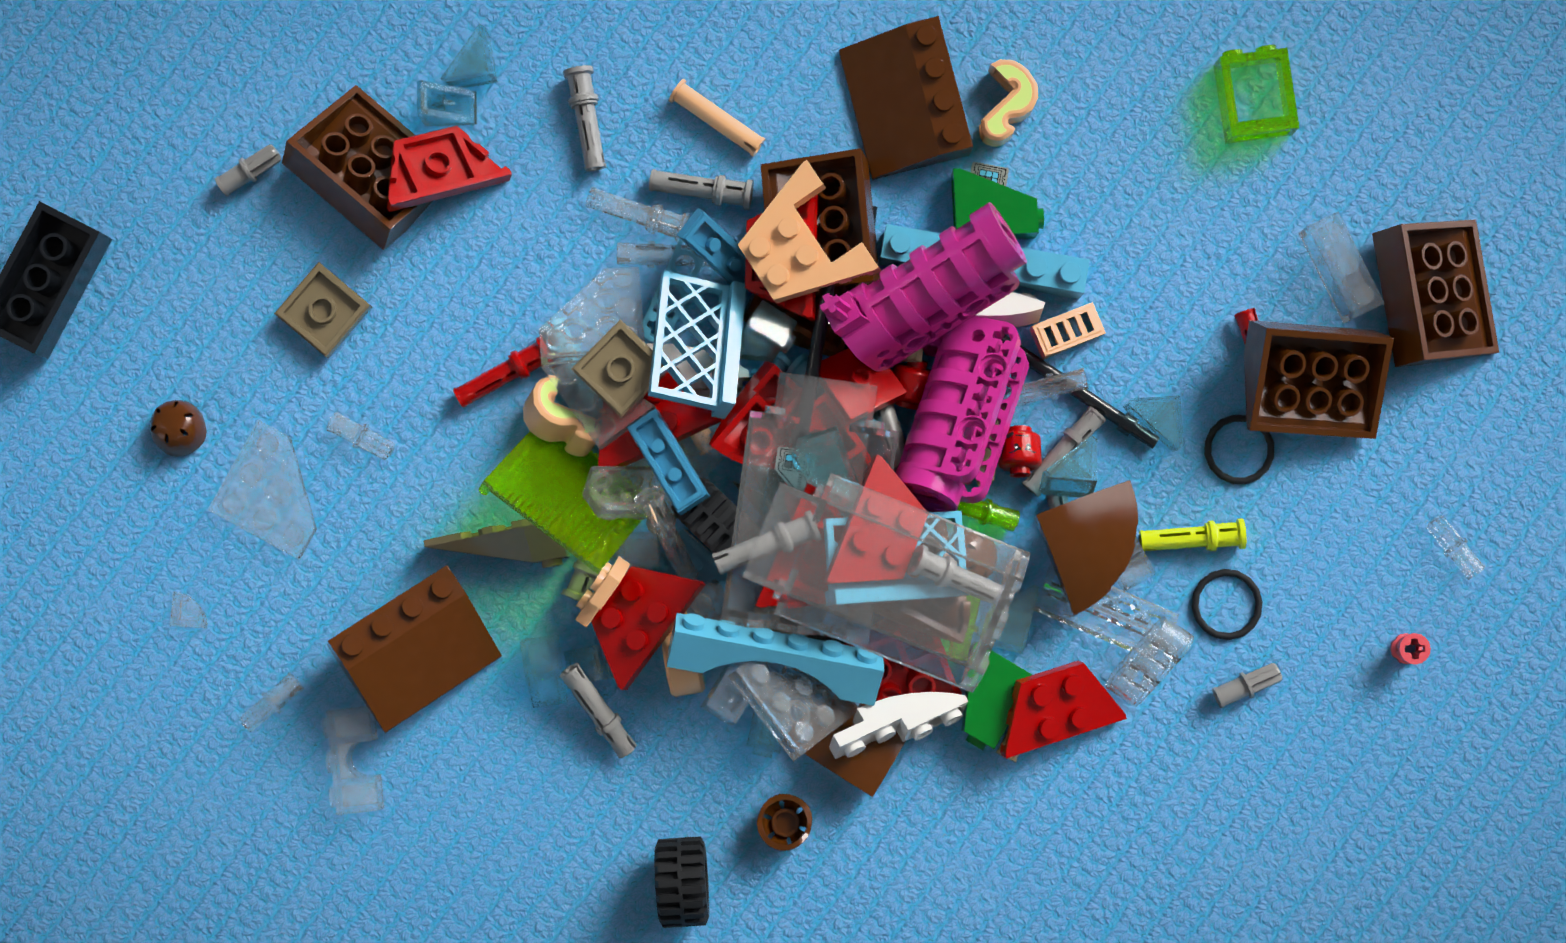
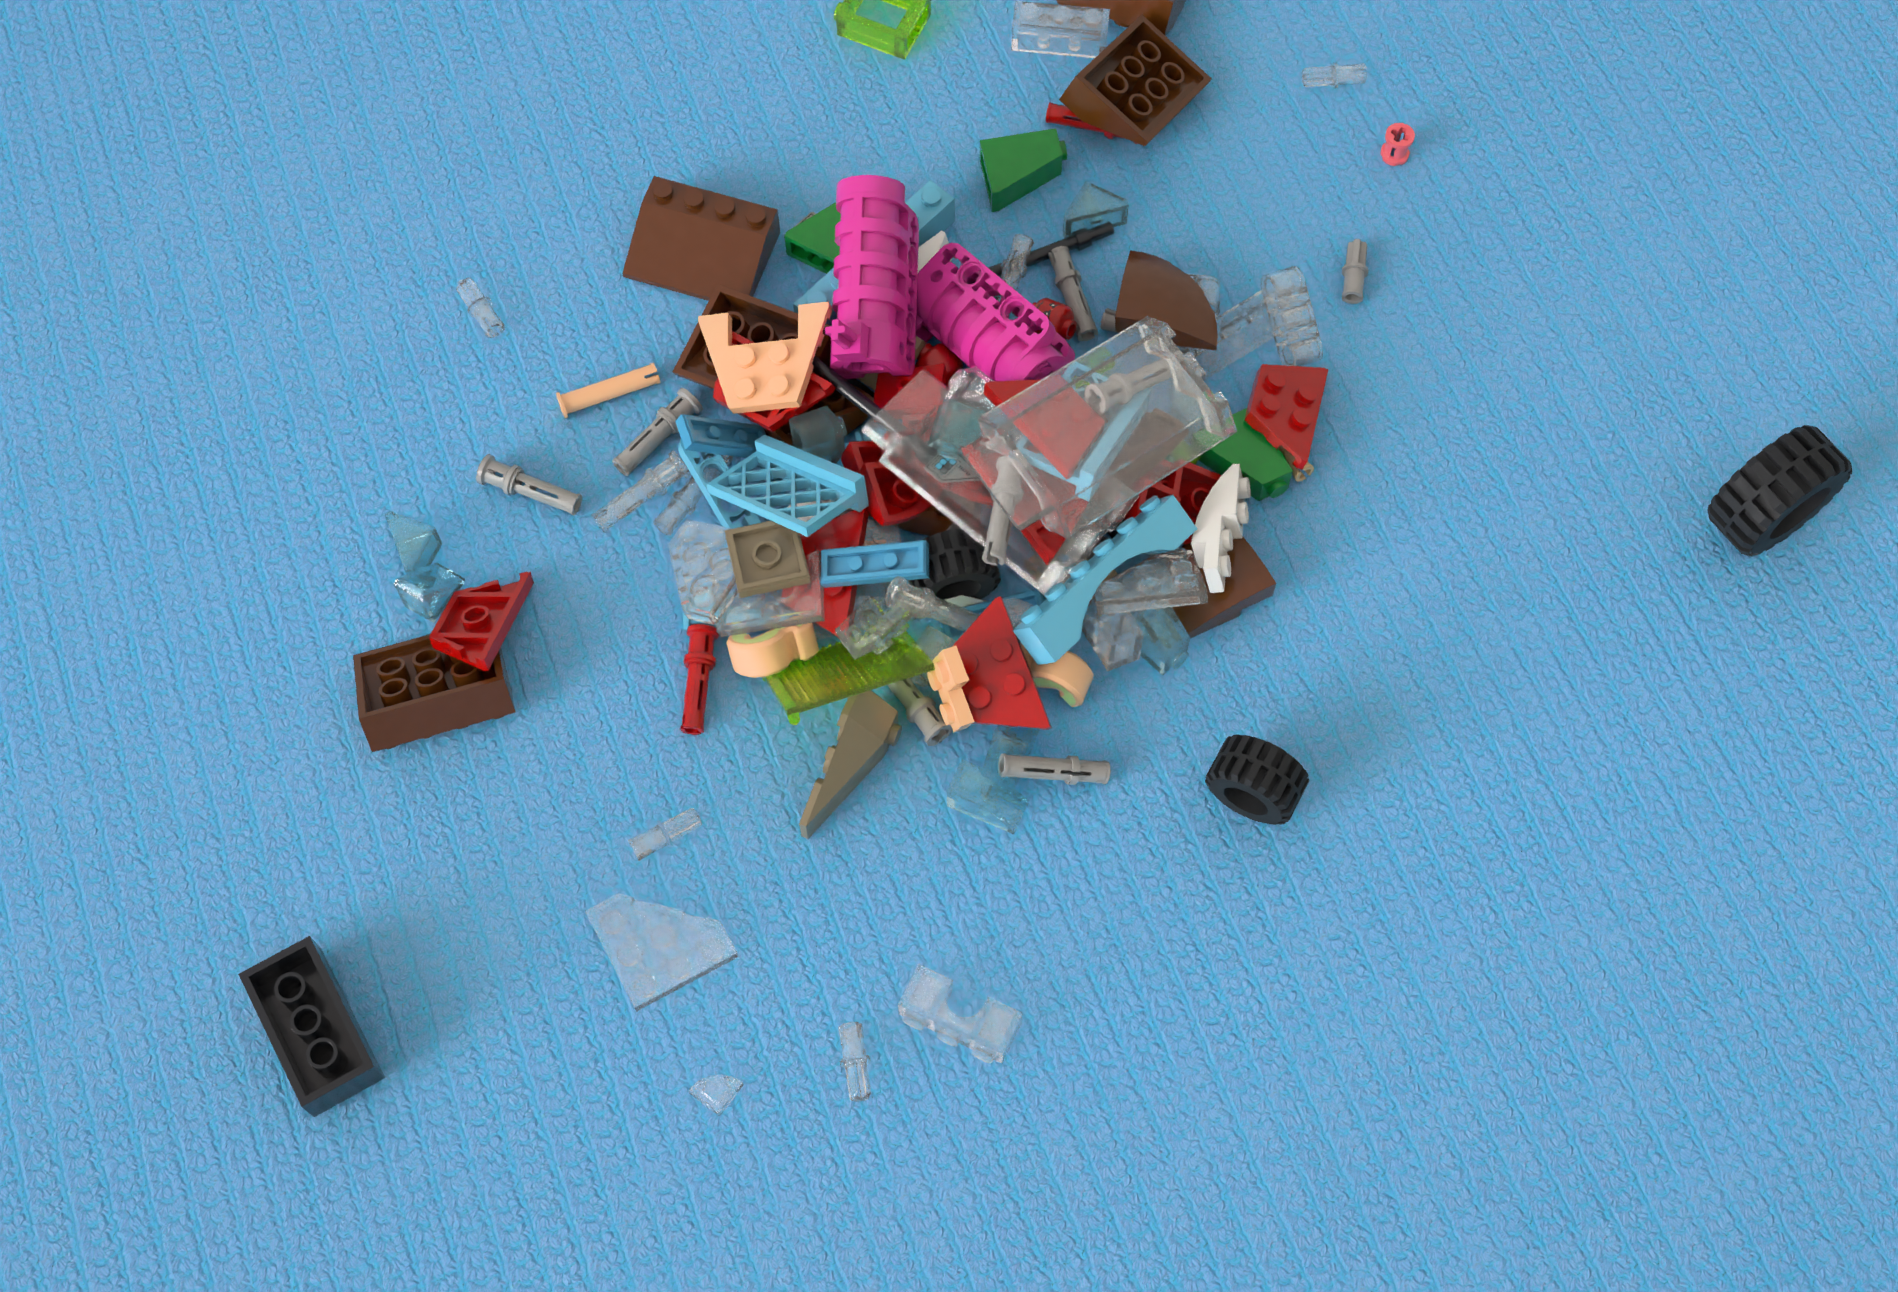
camera: 60 degrees left, 20 degrees down
(171, 421) = (530, 988): reddish brown helmet -> none
(248, 169) = (354, 787): light grey axle -> none
(323, 310) = (528, 797): dark tan plate -> none
(414, 648) = (892, 892): reddish brown slope -> none
(784, 822) = (1254, 682): reddish brown helmet -> none
(1014, 107) = (764, 165): light nougat animal -> none
(1042, 341) = (985, 247): light nougat slope -> none
(1074, 473) = (1098, 286): clear light blue slope -> none
(1168, 323) = (1020, 164): none -> green slope
(1208, 536) = (1212, 232): neon yellow pin -> none
(1231, 573) = (1276, 227): black piece -> none
(1237, 480) = (1151, 201): black piece -> none

